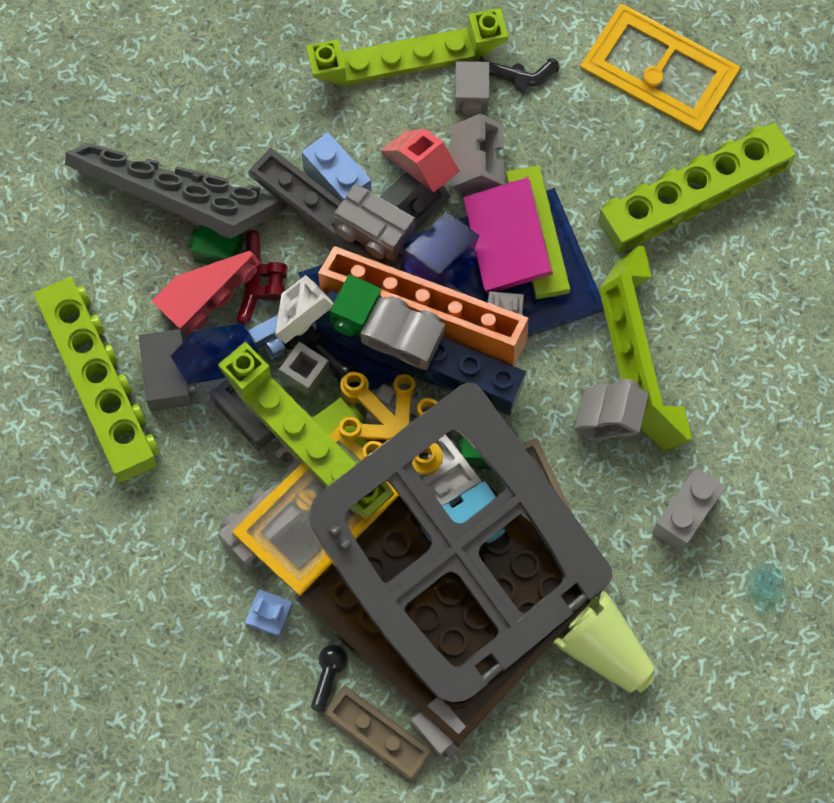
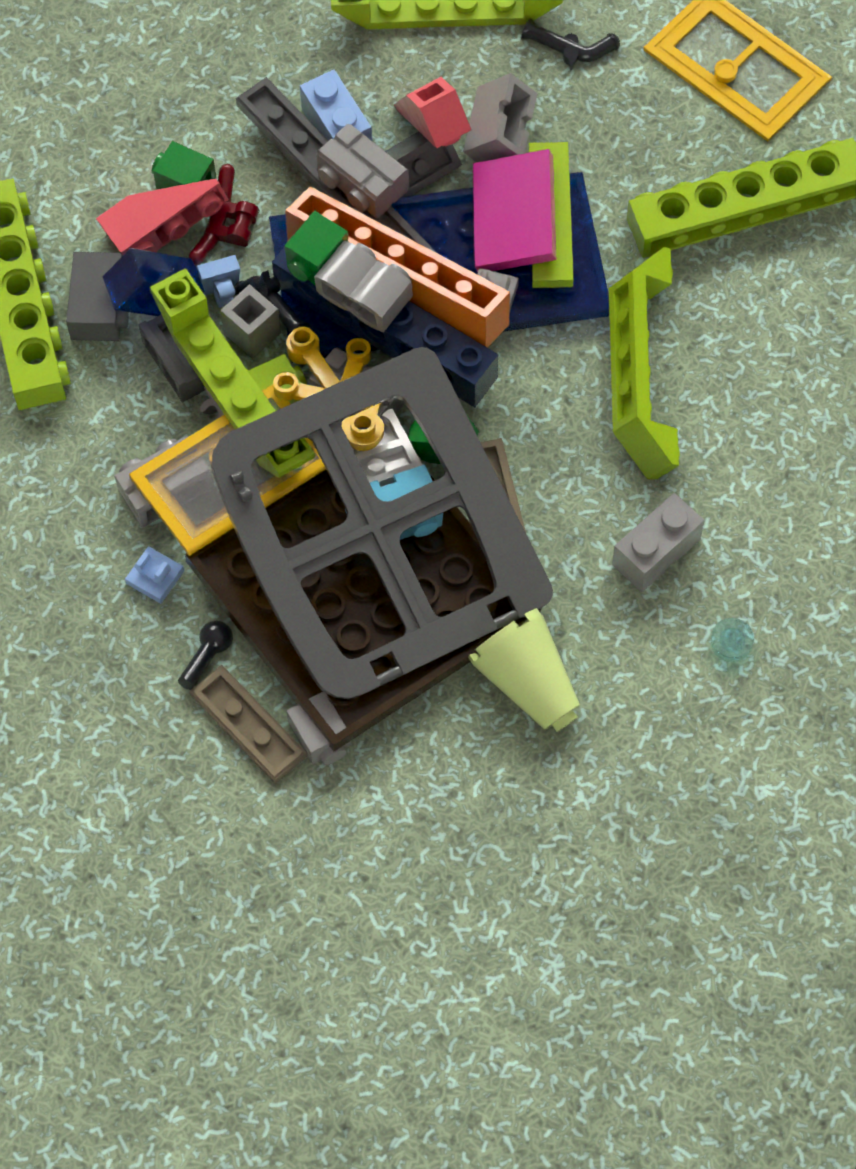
camera: 15 degrees right, 5 degrees down
(187, 192) = (164, 112): dark grey wing -> none
(300, 308) = (256, 251): white wing -> none
(441, 253) = (434, 215): clear blue brick -> none
(471, 87) = (512, 48): light grey brick -> none
(611, 410) = (590, 418): light grey brick -> none

